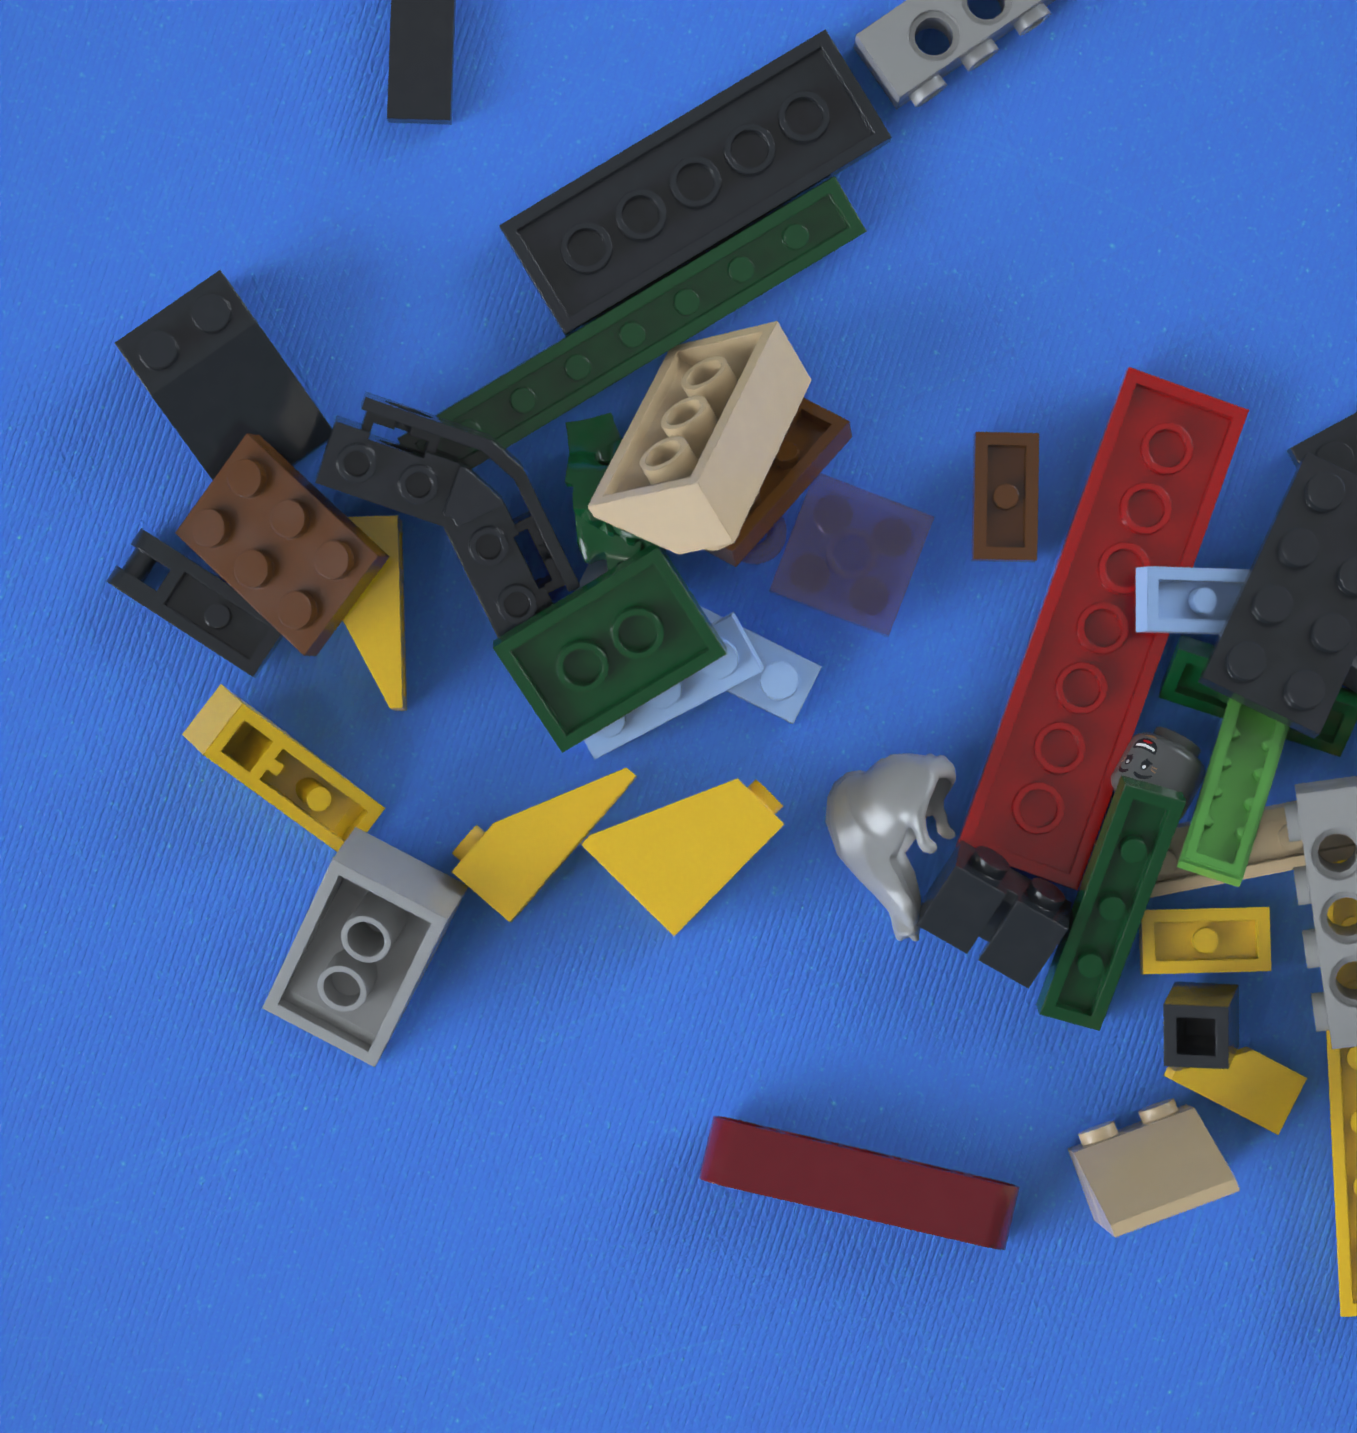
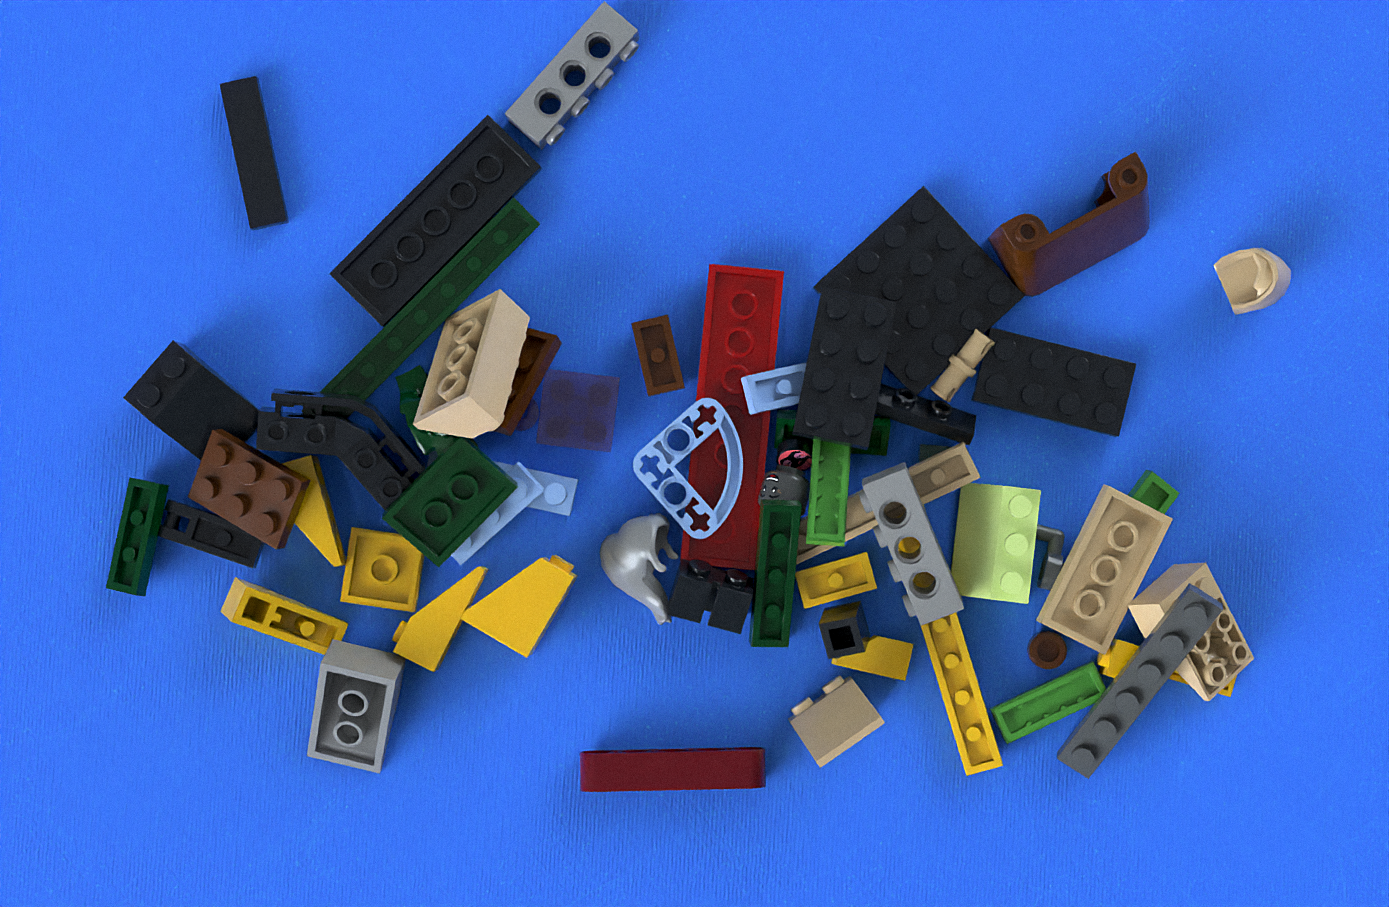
camera: 15 degrees left, 0 degrees up
(76, 577) = (137, 536): none -> dark green plate
(463, 734) = (382, 570): none -> yellow tile
(985, 670) = (670, 458): none -> light blue beam
(1192, 715) = (795, 454): none -> black tile

